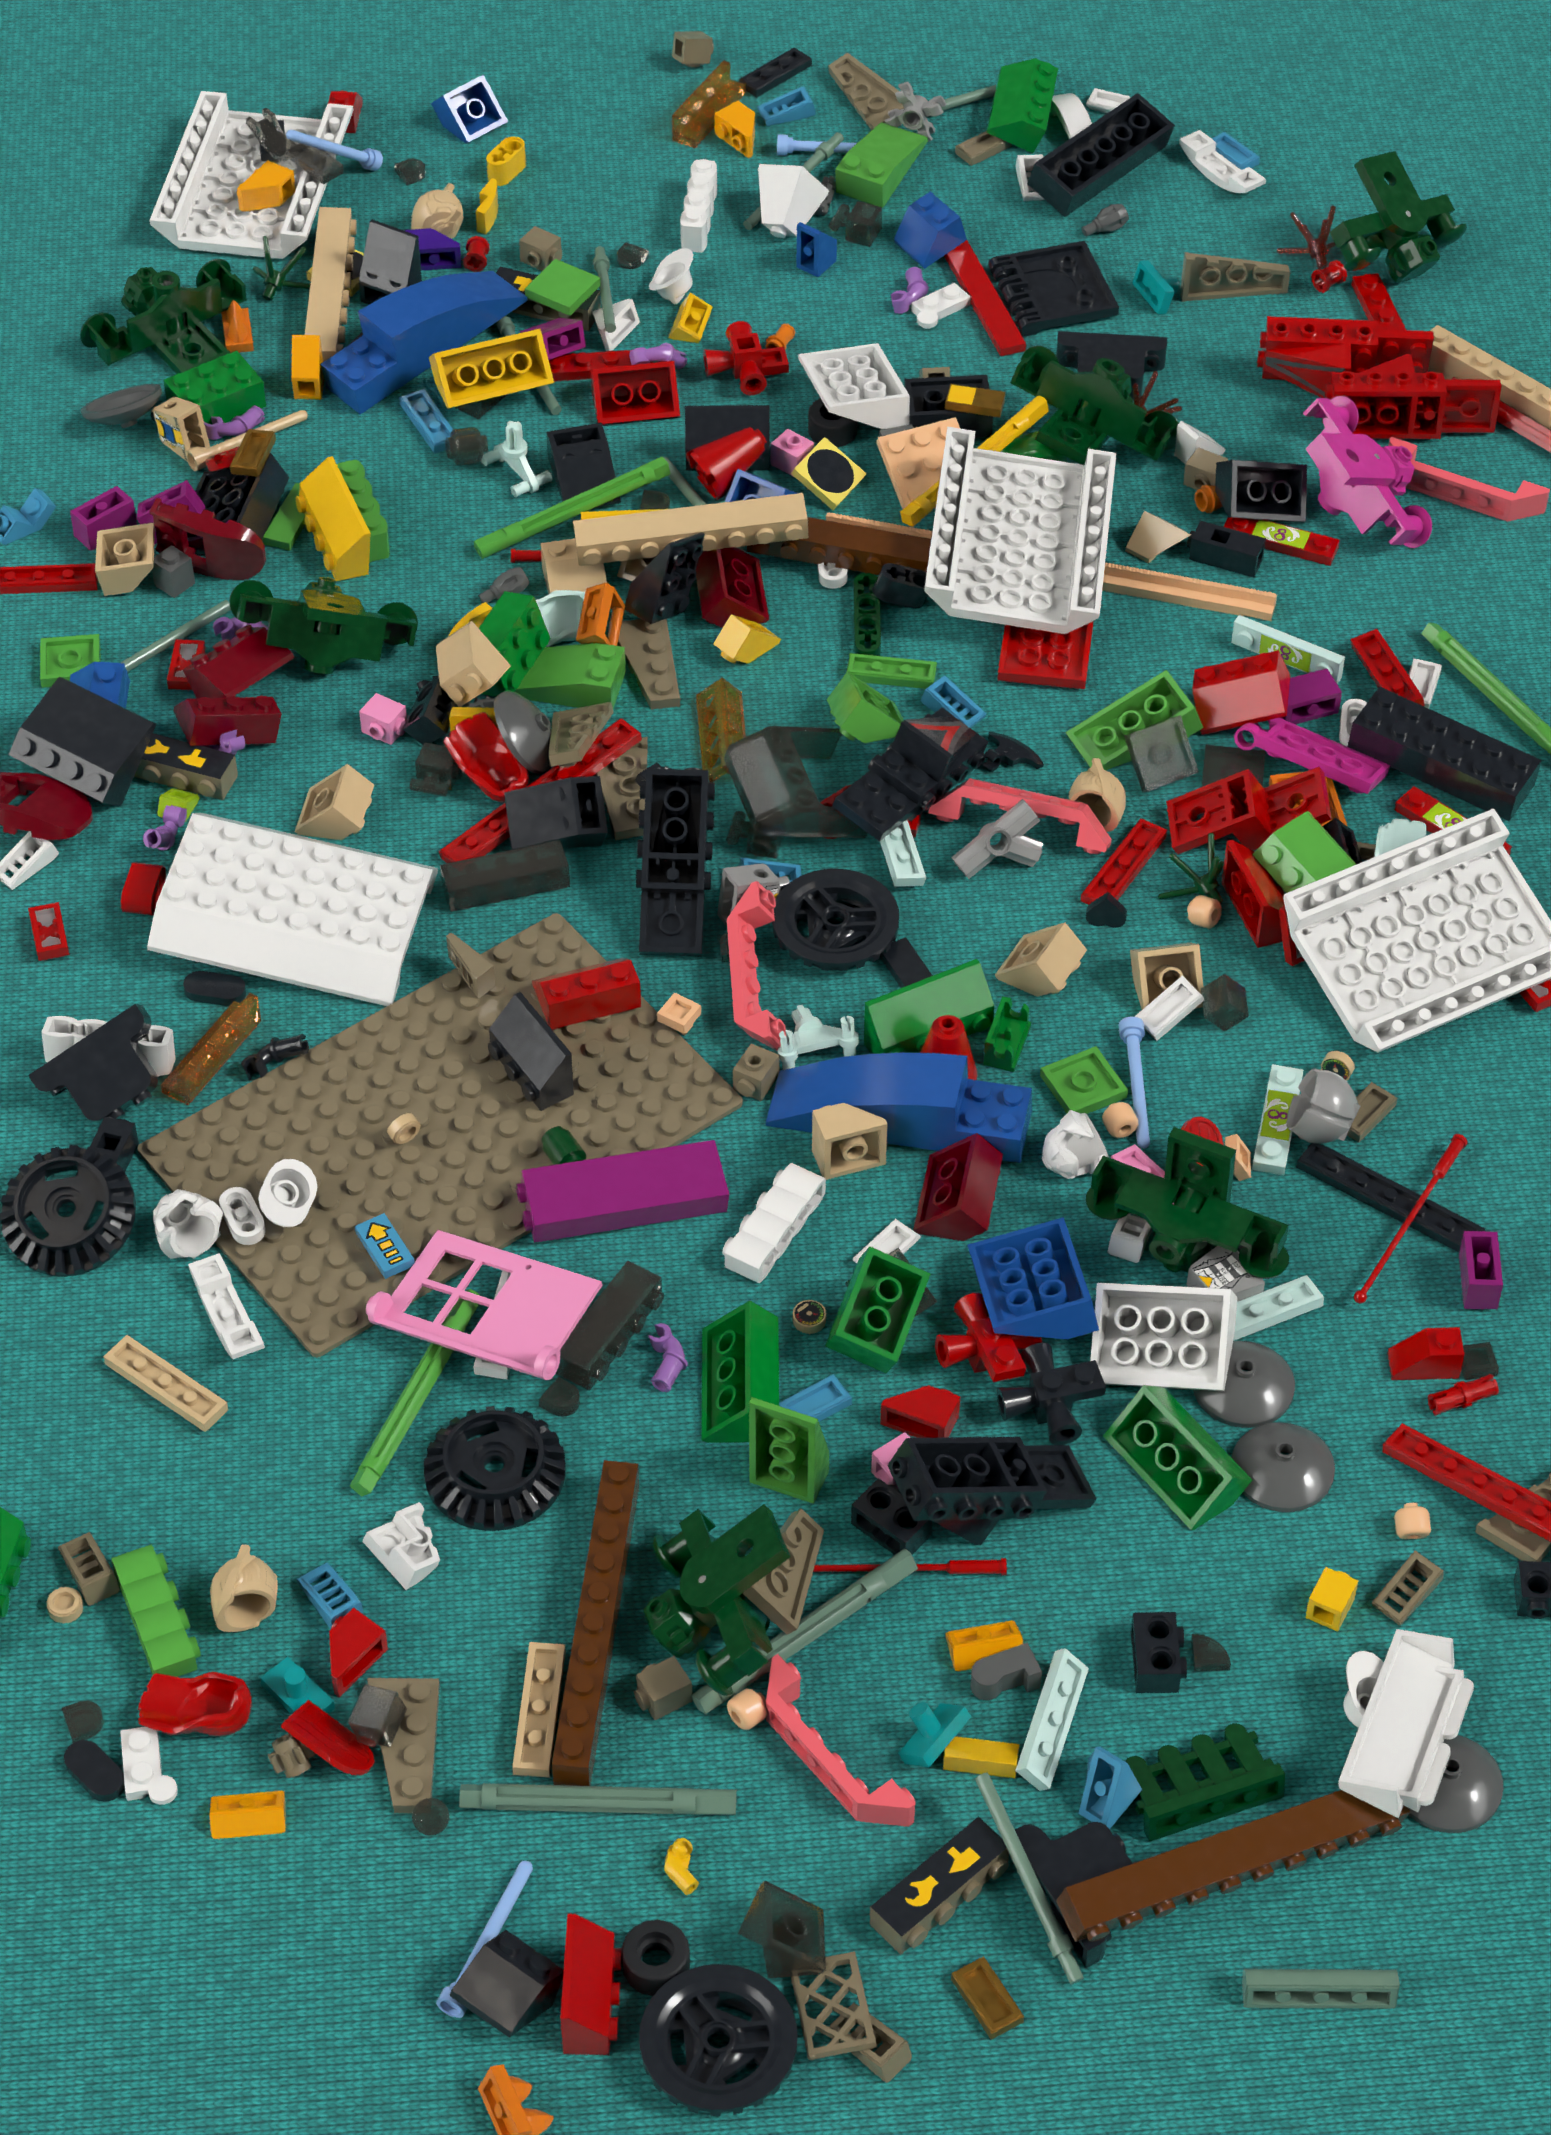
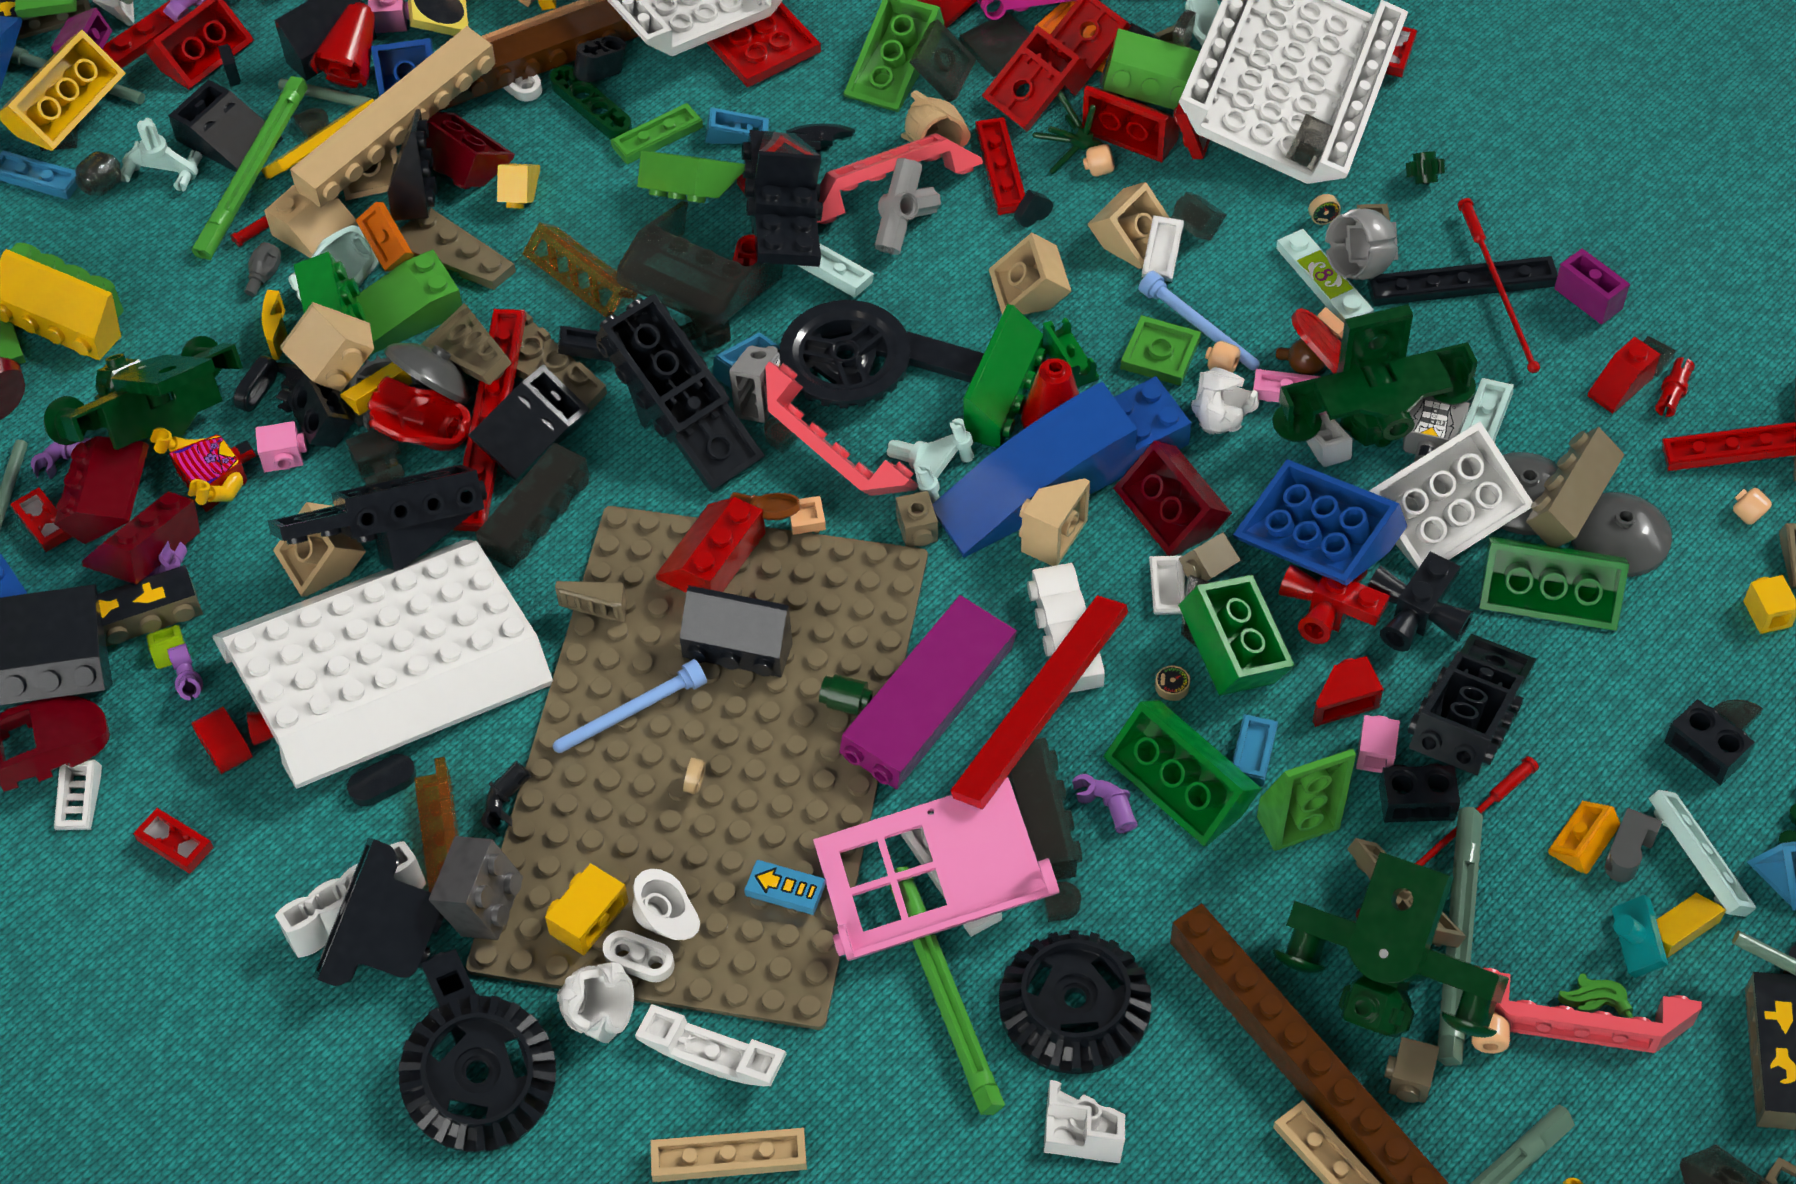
camera: 40 degrees left, 5 degrees up
(183, 1092) = (476, 888): none -> flat silver brick
(240, 1160) = (586, 908): none -> yellow brick
(321, 700) = (206, 465): none -> torso
(395, 811) = (398, 513): none -> black wedge
(412, 665) = (255, 383): none -> black tile
(476, 1062) = (688, 677): none -> light blue piece
(638, 423) = (229, 65): none -> black tile
(657, 987) = (774, 505): none -> dark orange piece
(683, 1248) = (1039, 702): none -> red tile
(858, 1749) = (1595, 994): none -> bright green piece
(928, 1249) = (1210, 558): none -> dark tan brick
(1271, 1400) = (1574, 487): none -> dark tan brick
(1363, 846) = (1184, 28): none -> clear smoke tile
(1374, 1001) = (1309, 141): none -> clear smoke brick
(1459, 1090) = (1425, 167): none -> dark green gear

